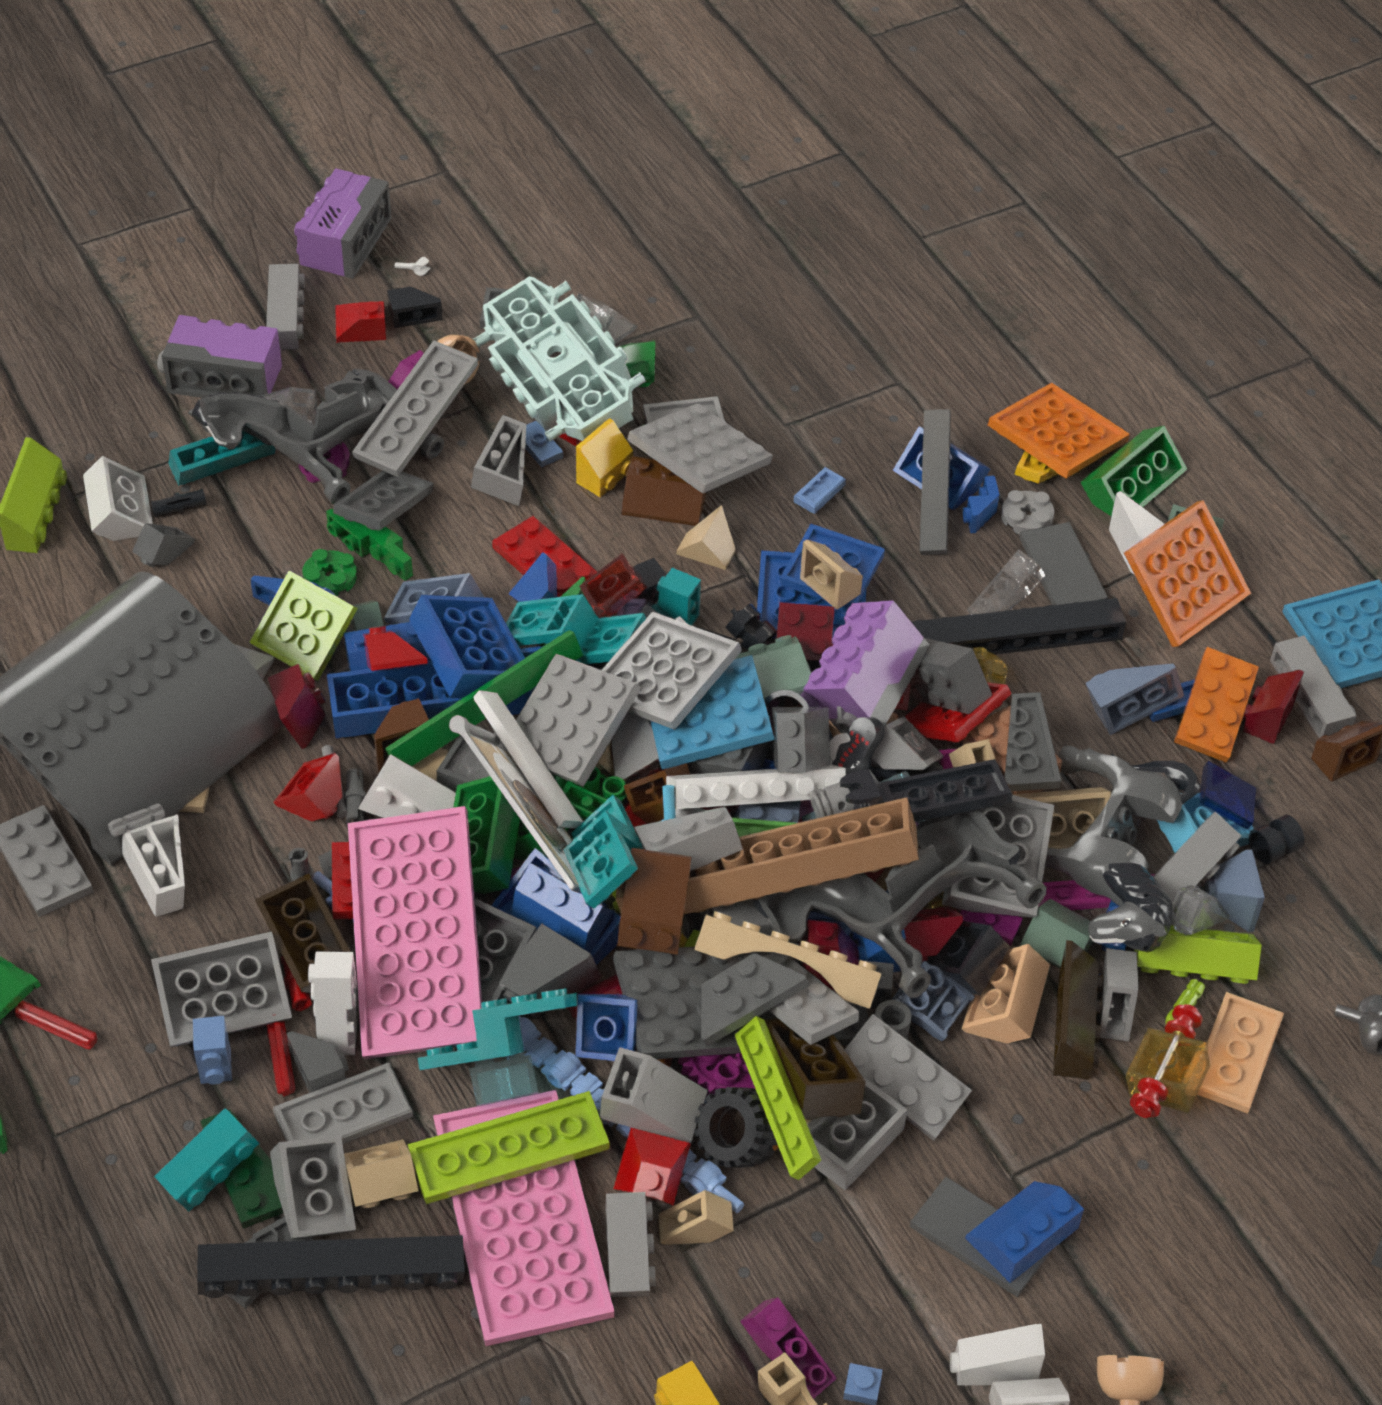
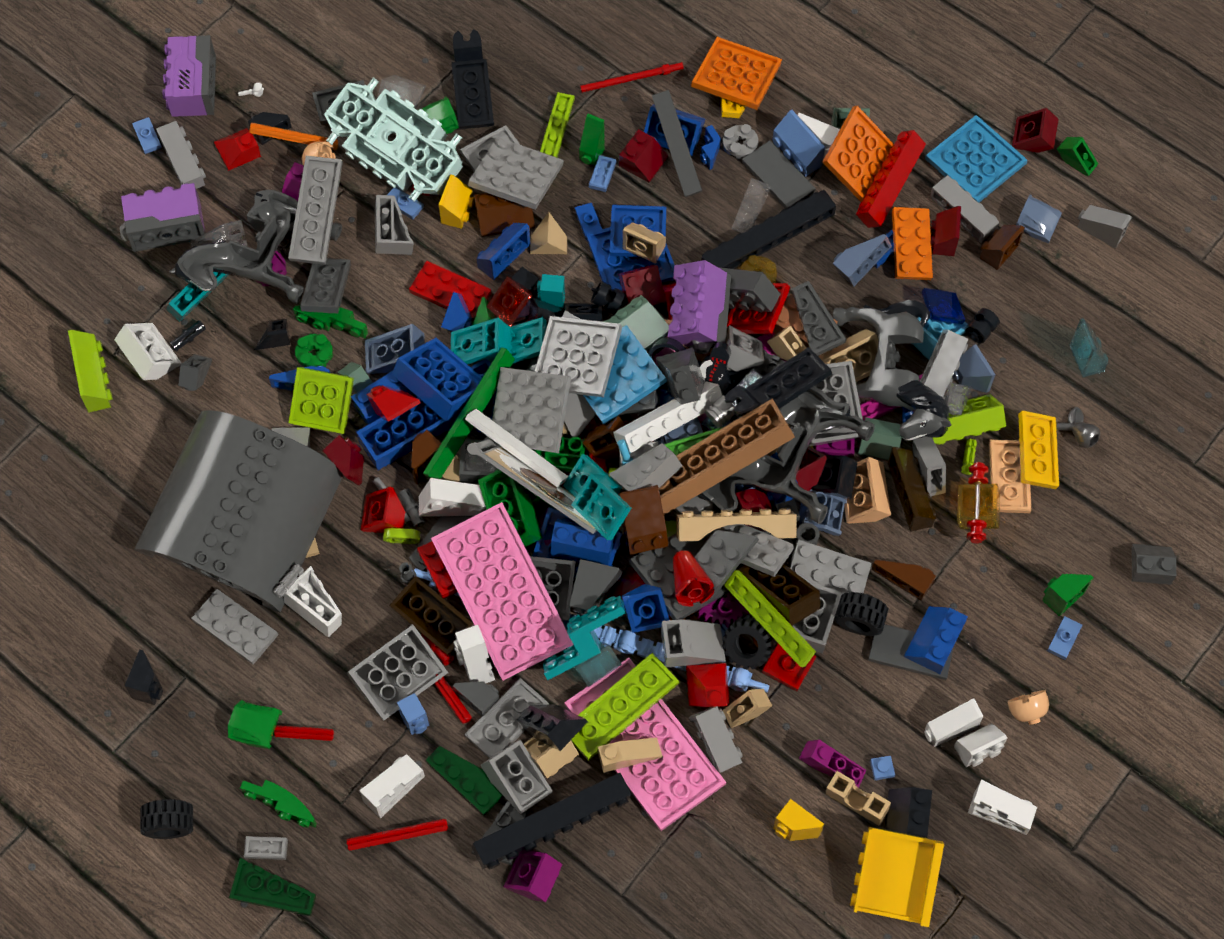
camera: 20 degrees left, 15 degrees up
(108, 1205) = (397, 834): none -> red axle
(132, 1133) = (391, 785): none -> white wedge
(207, 1160) = (446, 785): teal brick -> none
(256, 274) = (147, 135): none -> medium blue plate
(268, 1333) = (533, 875): none -> magenta slope
(288, 538) = (275, 335): none -> black slope
(322, 825) = (401, 536): none -> lime beam
(394, 1131) = (551, 724): none -> black slope
(426, 319) = (288, 135): none -> orange axle
(486, 1214) = (628, 753): none -> tan slope
(643, 534) = (504, 249): none -> blue slope
(684, 1006) = (690, 580): none -> red cone
(696, 334) = (471, 83): none -> black hinge
(774, 534) = (587, 218): none -> blue plate
(783, 1195) = (785, 669): none -> red plate
(786, 421) = (557, 124): none -> lime tile
(821, 441) = (592, 140): none -> green slope
(883, 486) = (642, 156): none -> dark red slope
(923, 1150) = (861, 614): none -> black tyre
(964, 400) = (664, 69): none -> red bar
(1020, 1130) = (908, 577): none -> reddish brown slope
(1105, 534) = (799, 144): none -> medium blue slope
(1137, 470) = (797, 85): green slope -> none
(1220, 615) = (890, 179): none -> red brick
(1229, 1304) = (1064, 638): none -> medium blue plate
(1257, 1233) = (1065, 591): none -> green slope
(1294, 1029) = (1038, 450): none -> yellow plate

